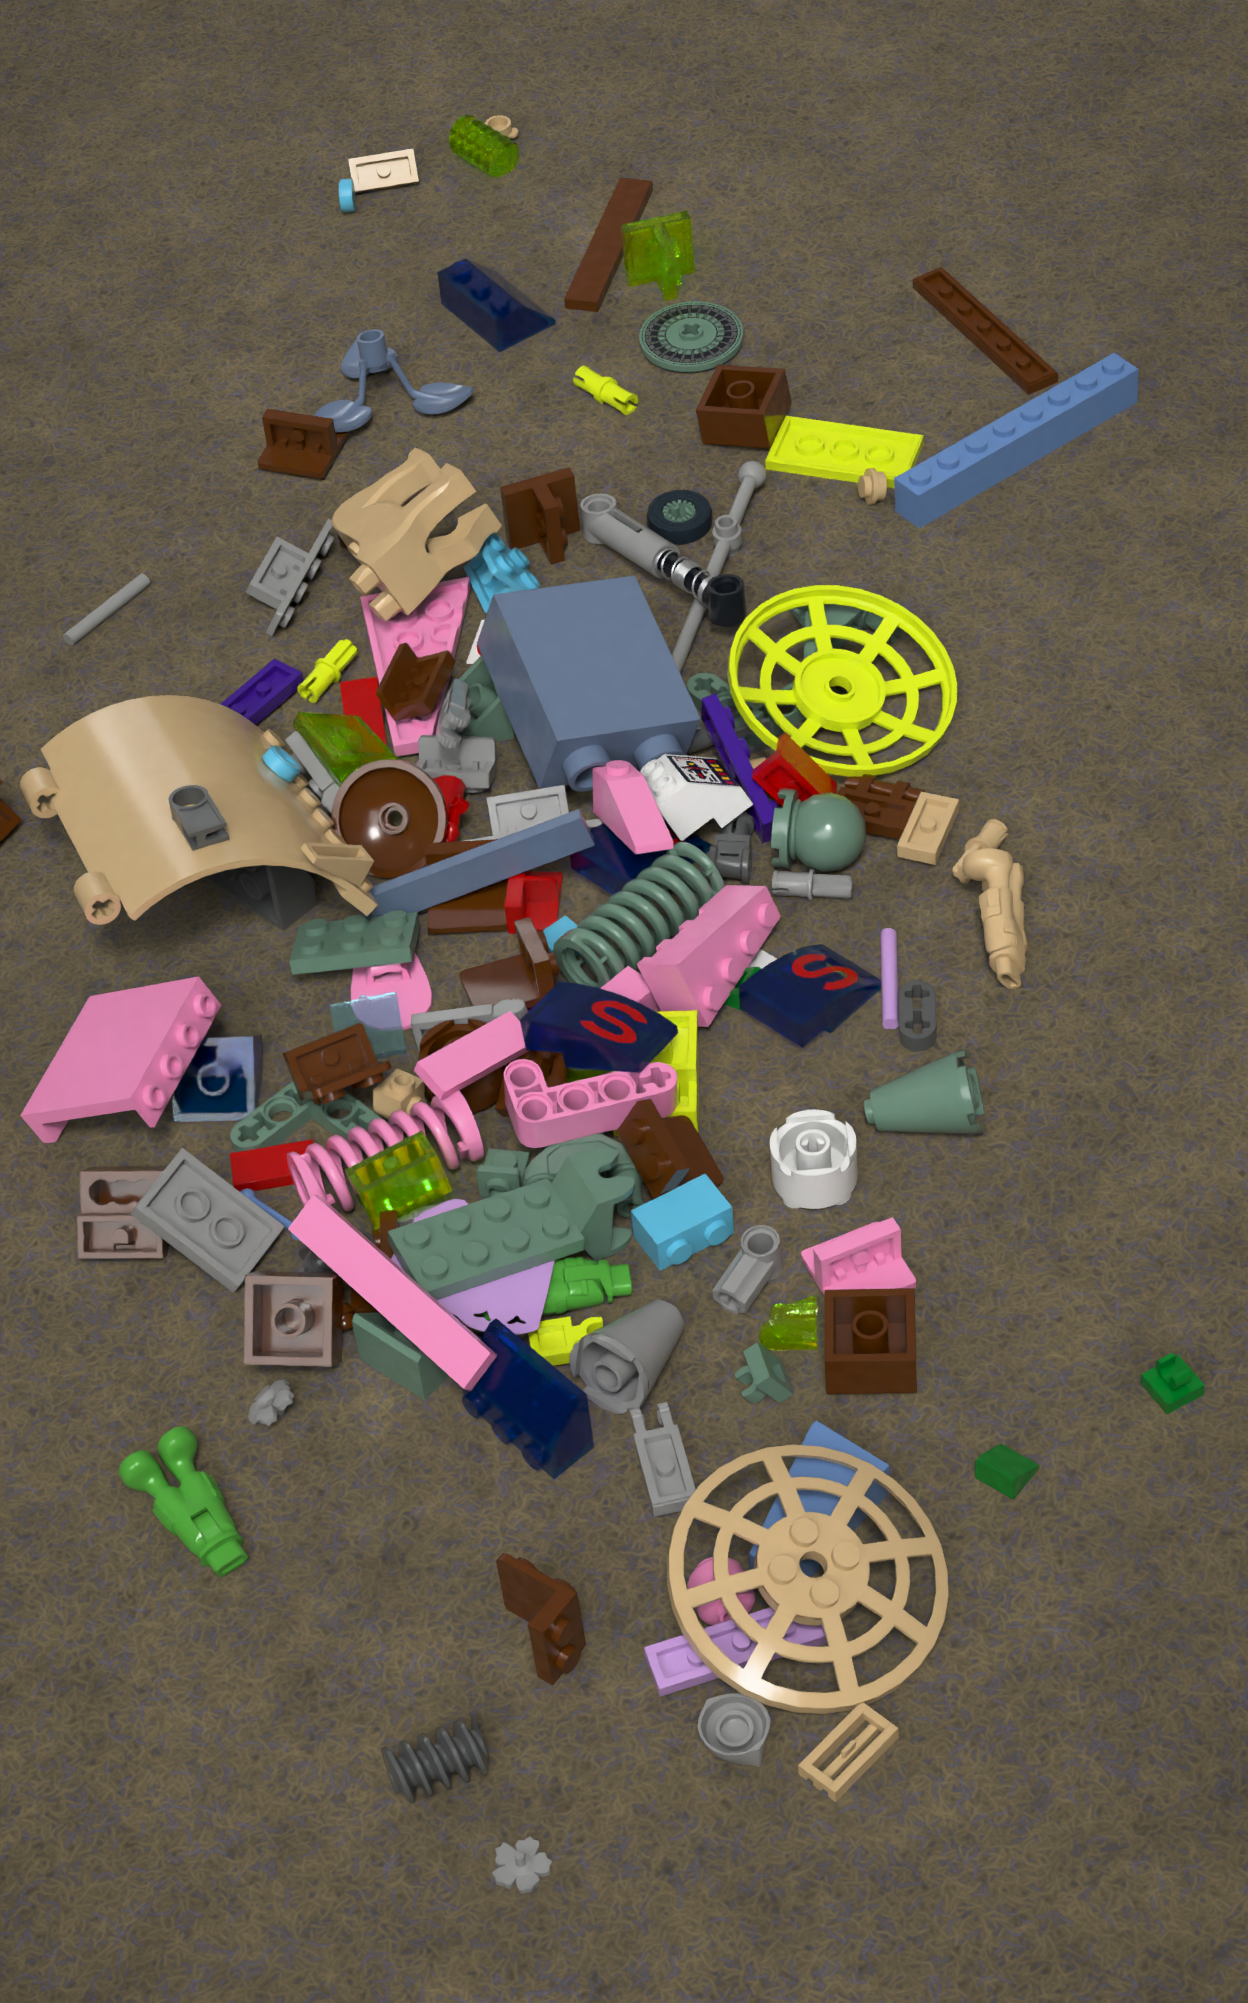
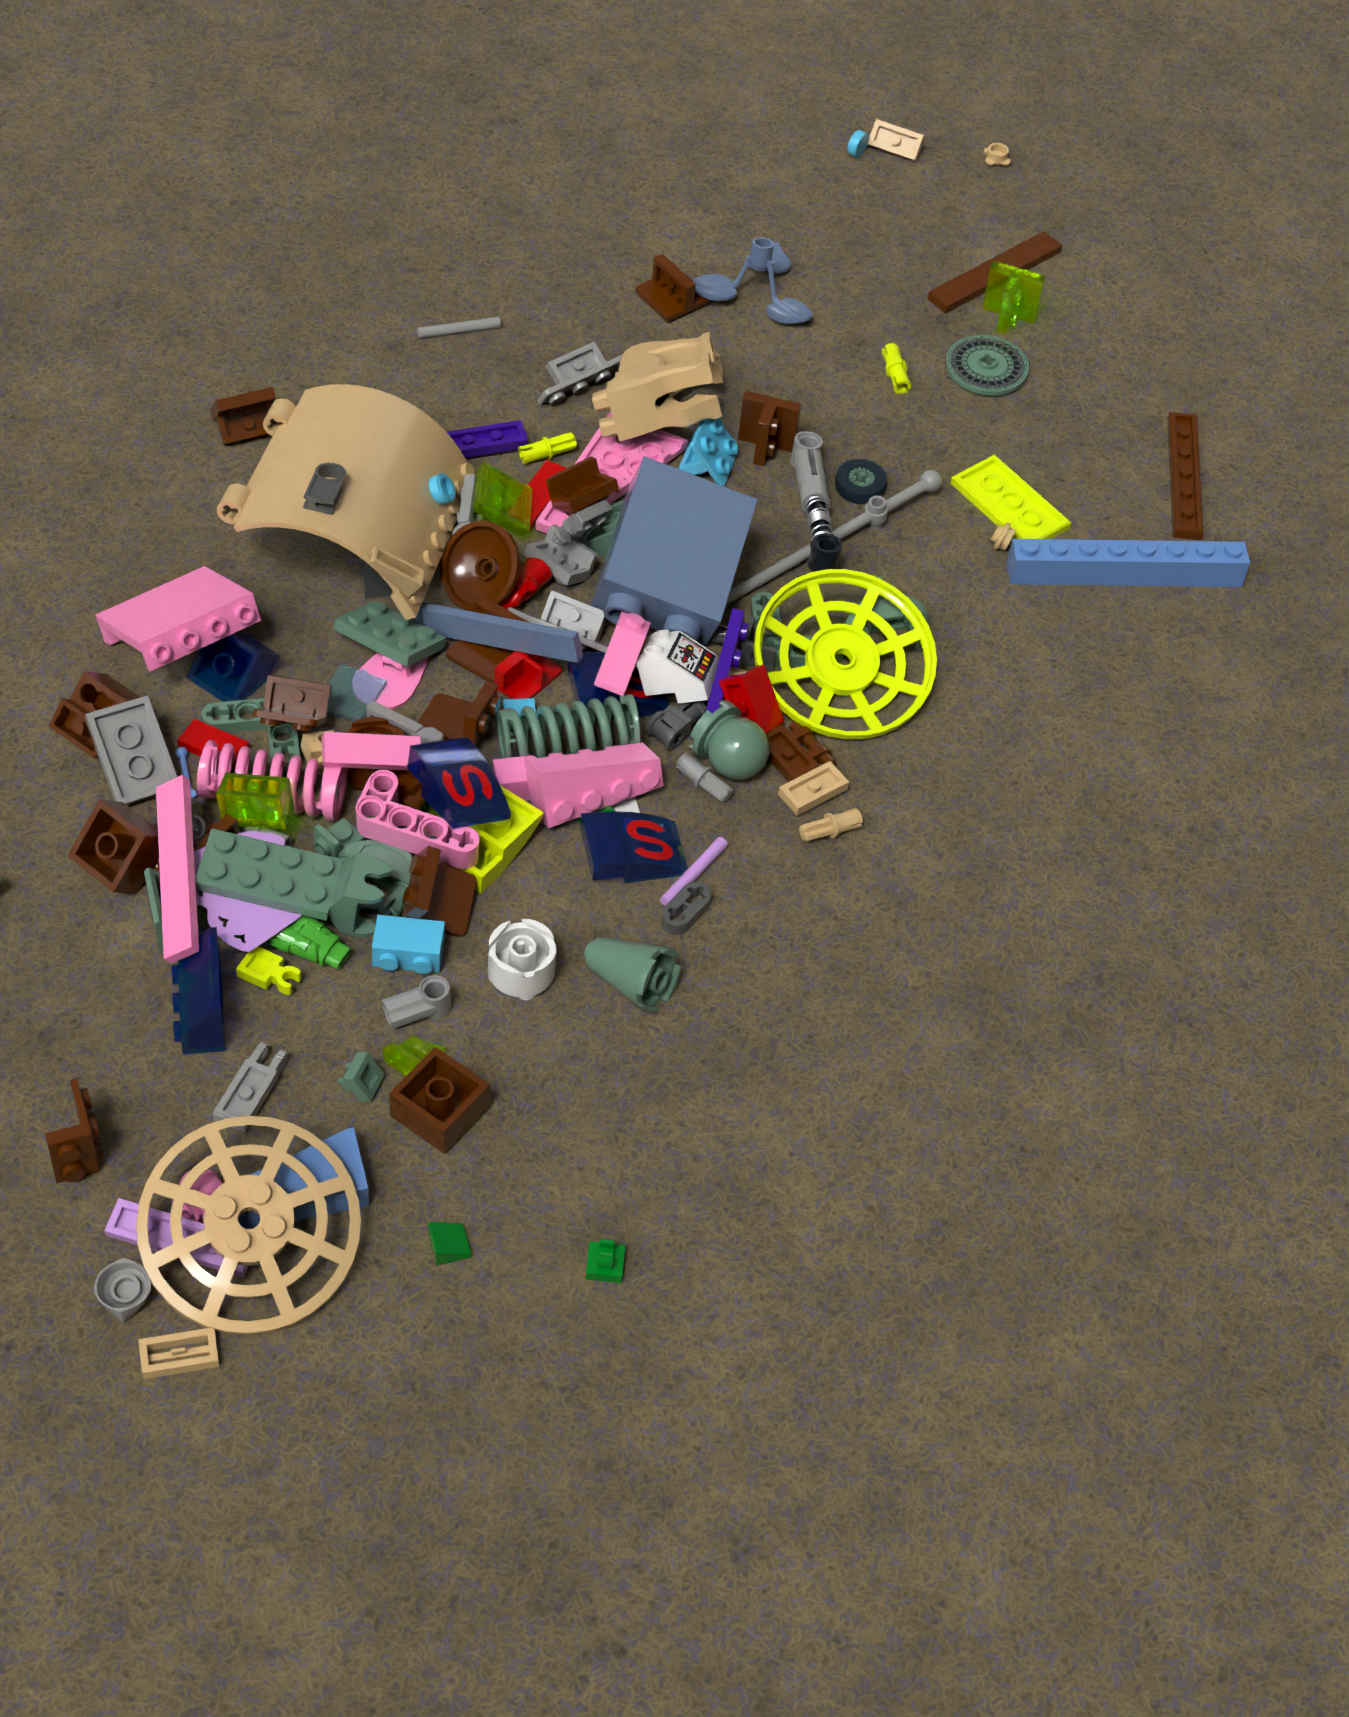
camera: 25 degrees right, 5 degrees up
(270, 1403) = (68, 890): light grey plant -> none
(483, 146) = (973, 159): clear neon green piece -> none
(490, 304) = (880, 268): clear blue slope -> none
(627, 1356) = (293, 1005): light grey cone -> none
(743, 406) = (967, 431): reddish brown brick -> none
(860, 1260) = (487, 1046): bright pink bracket -> none
(1001, 911) = (798, 876): tan piece -> none

